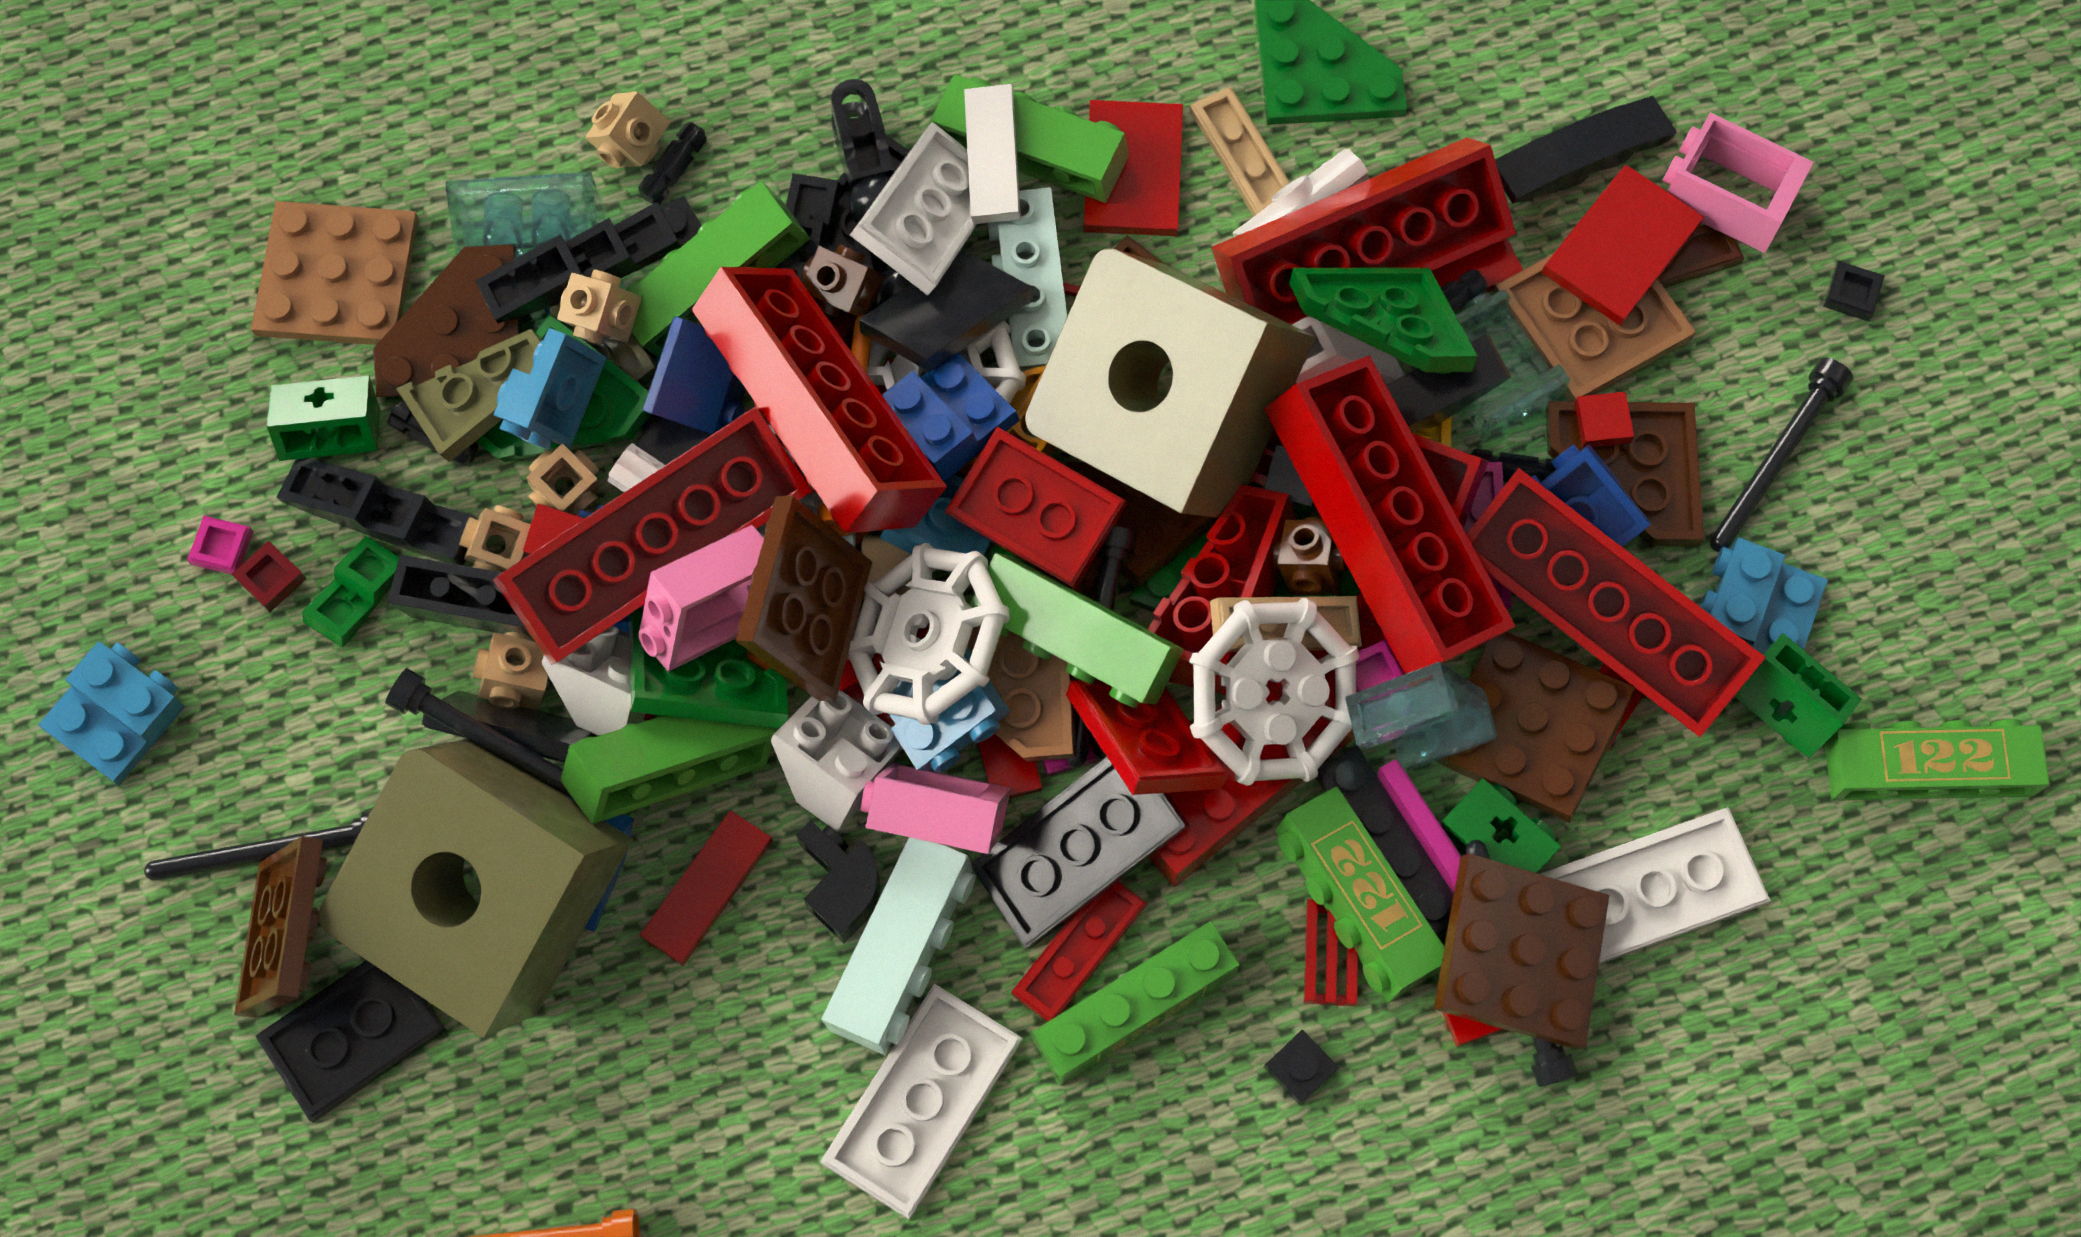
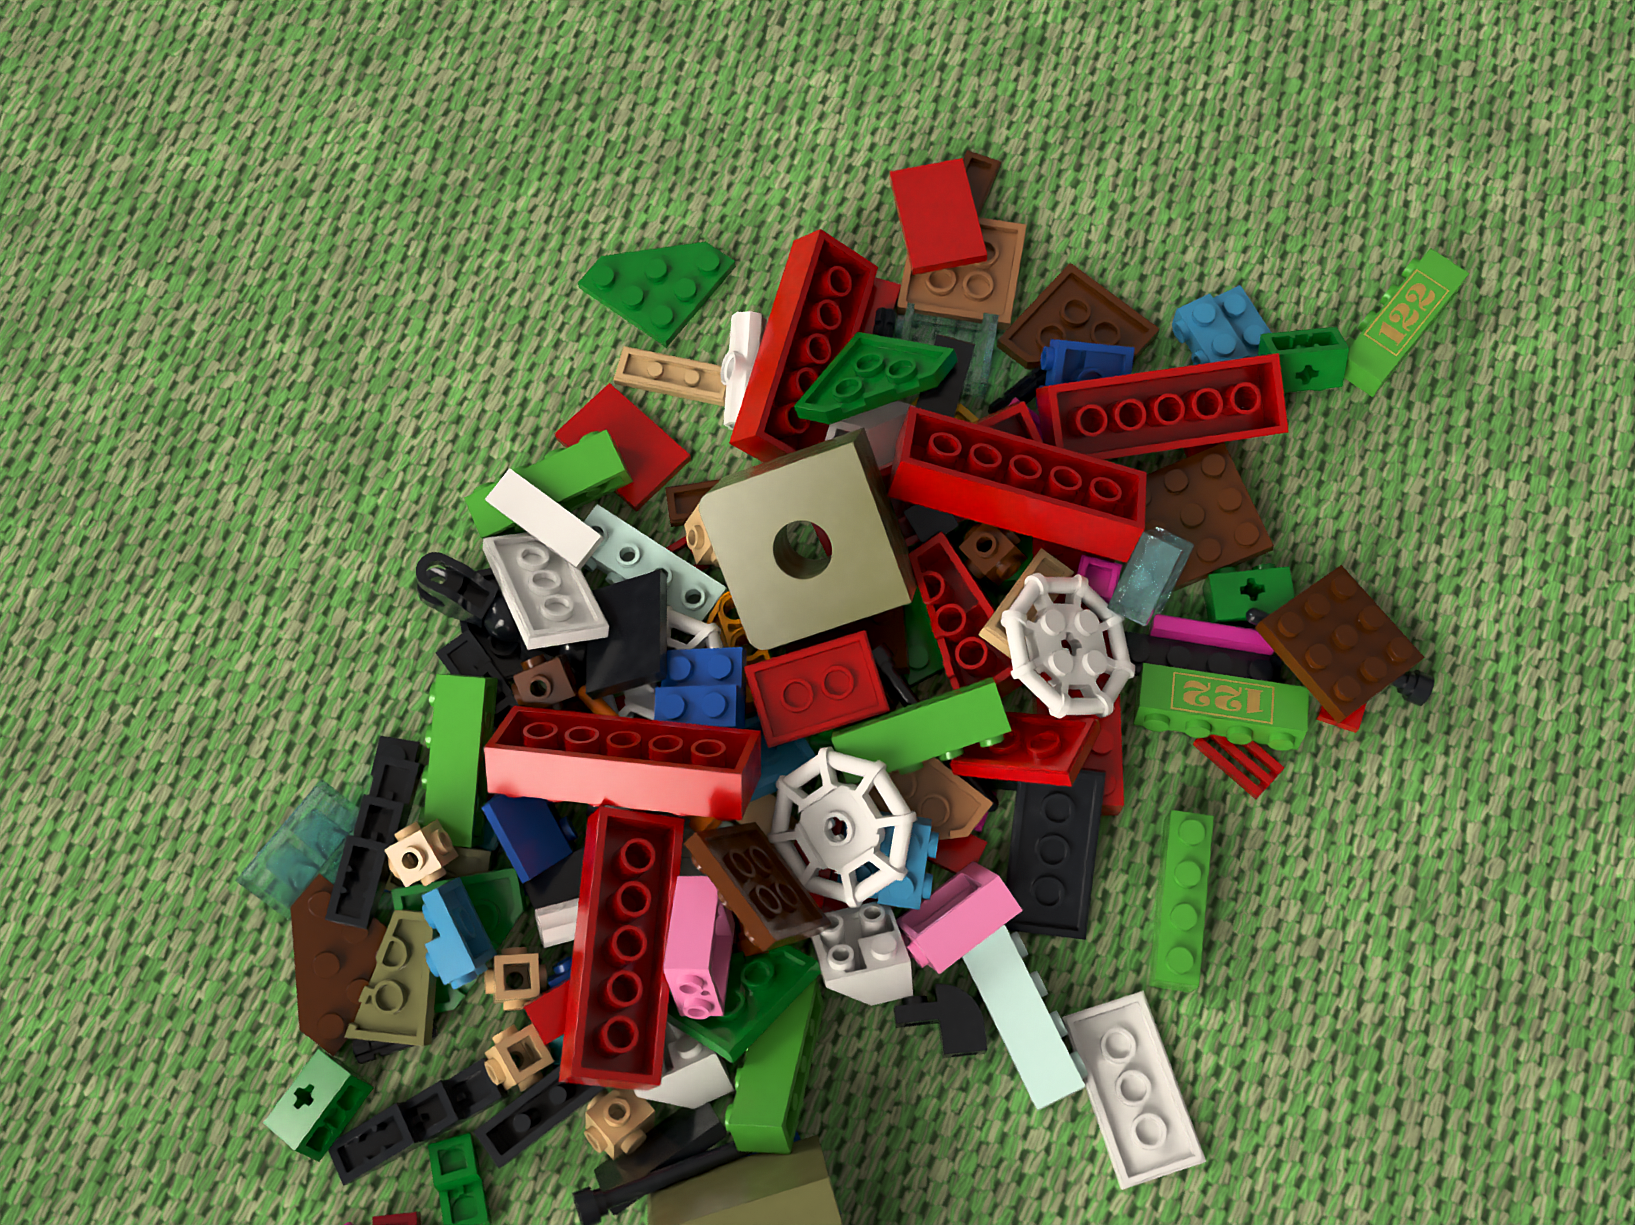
camera: 45 degrees left, 0 degrees up
(334, 272) = (214, 1012): medium nougat plate -> none
(627, 130) = (302, 733): tan brick -> none
(672, 163) = (349, 724): black axle -> none
(706, 888) = (875, 1113): red tile -> none
(1078, 952) = (1115, 912): red tile -> none
(1301, 1067) = (1297, 834): black plate -> none
(1582, 148) = (855, 184): black slope -> none
(1604, 419) = (1039, 318): red tile -> none
(1670, 882) = (1351, 525): white tile -> none
(1749, 157) = (950, 102): bright pink window -> none
(1827, 381) = (1118, 182): black piece -> none
(1853, 291) = (1073, 123): black tile -> none

